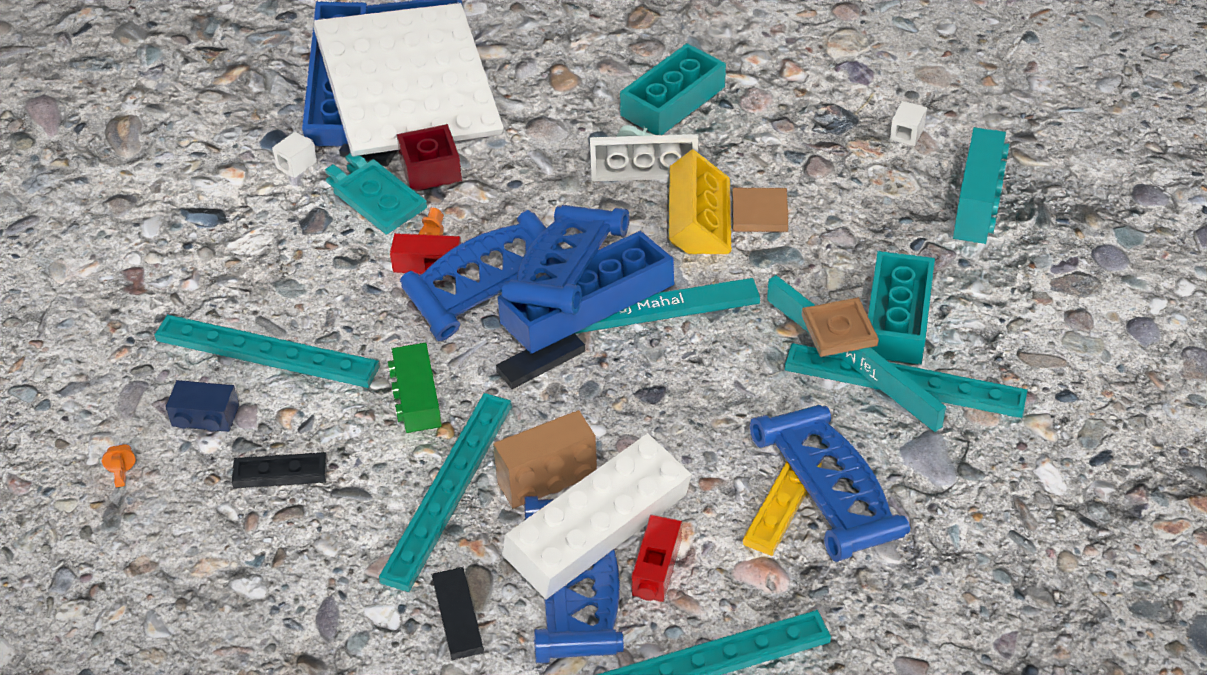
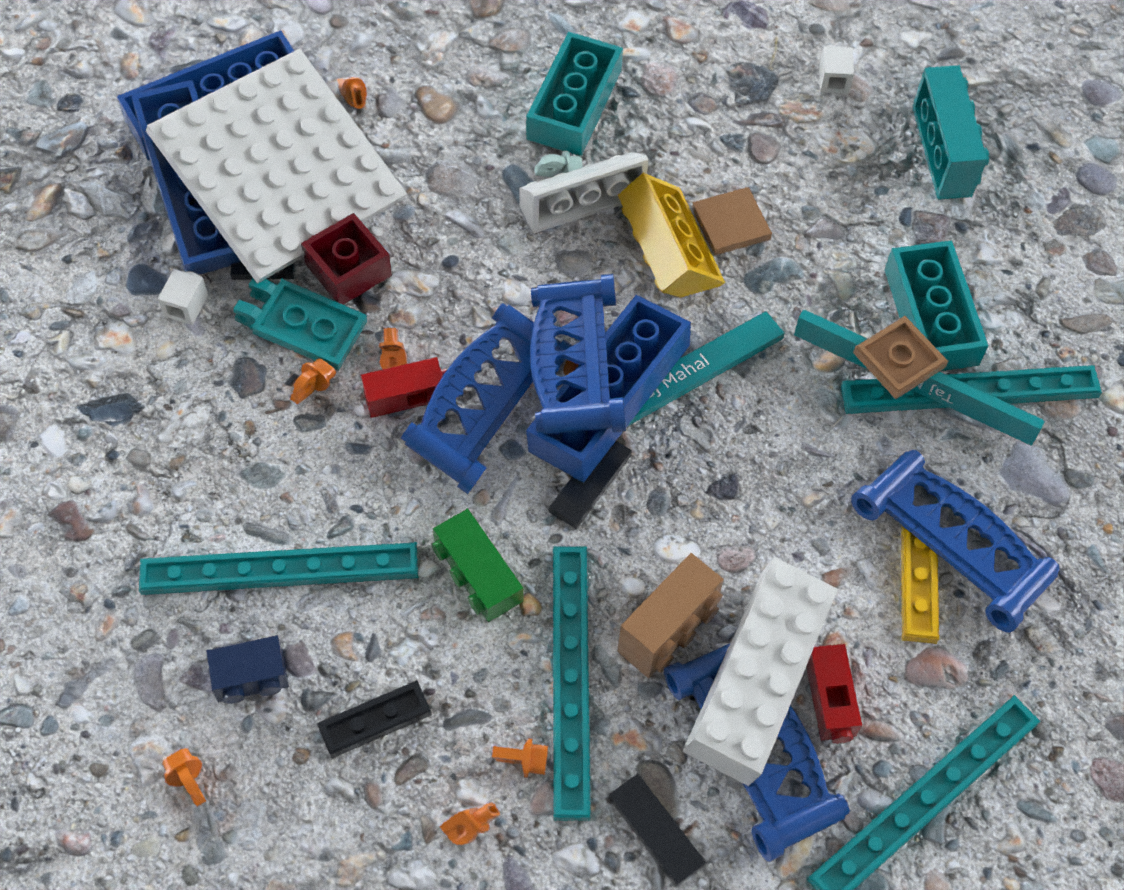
camera: 25 degrees left, 15 degrees up
(312, 558) = (467, 824): none -> orange piece
(359, 232) = (313, 377): none -> orange piece
(381, 529) = (532, 757): none -> orange piece
(500, 52) = (353, 91): none -> orange piece

